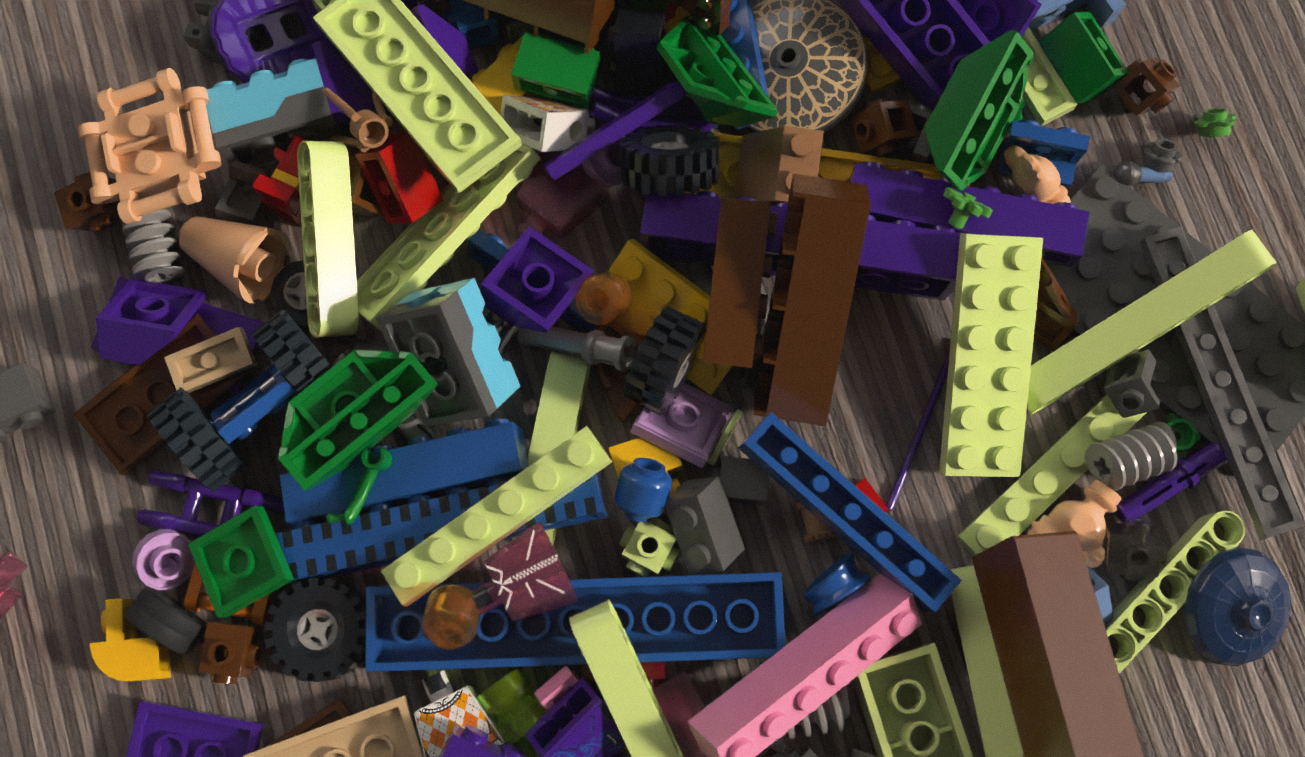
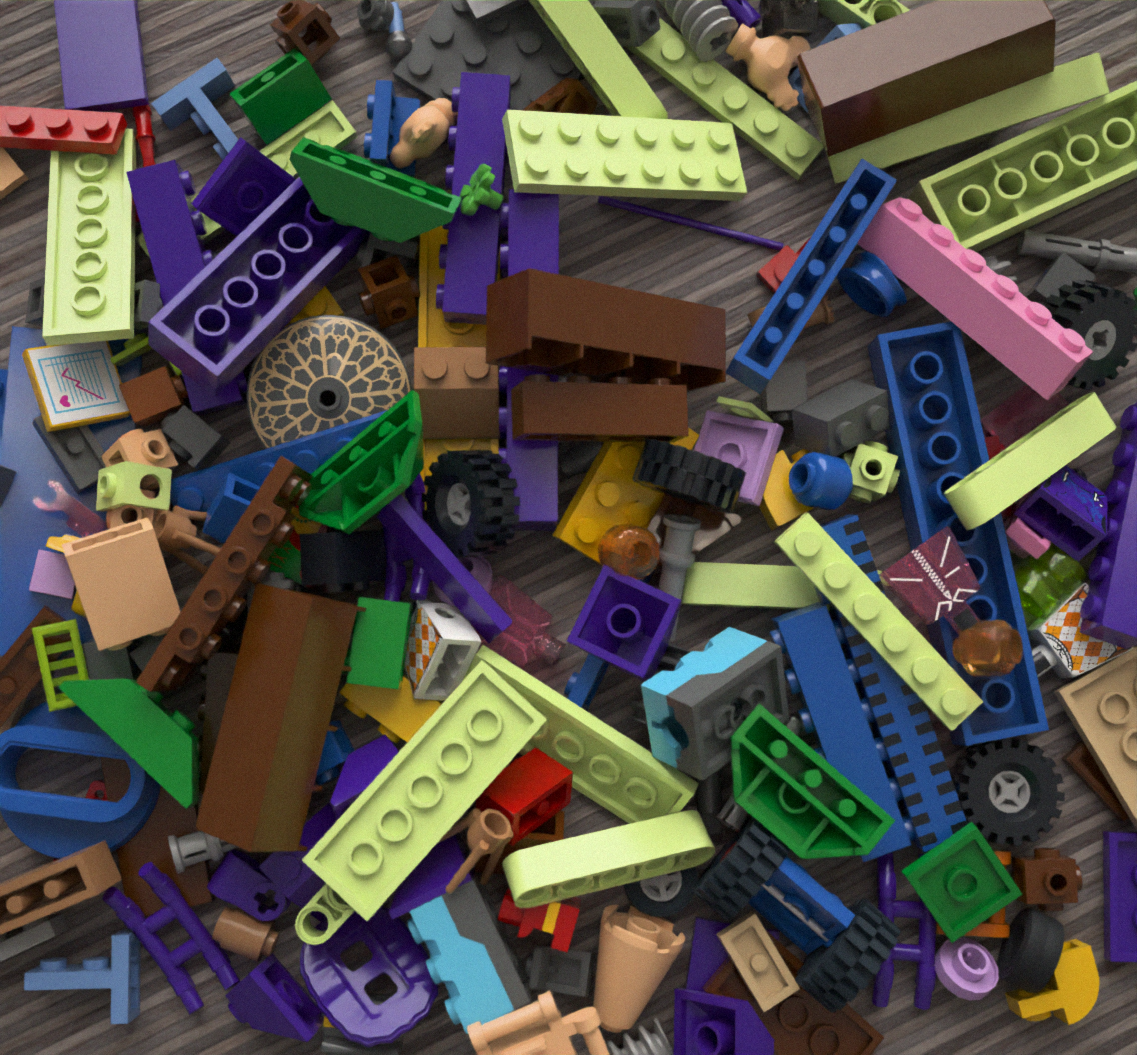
camera: 105 degrees left, 5 degrees up
(364, 486) = (871, 767): green piece -> none

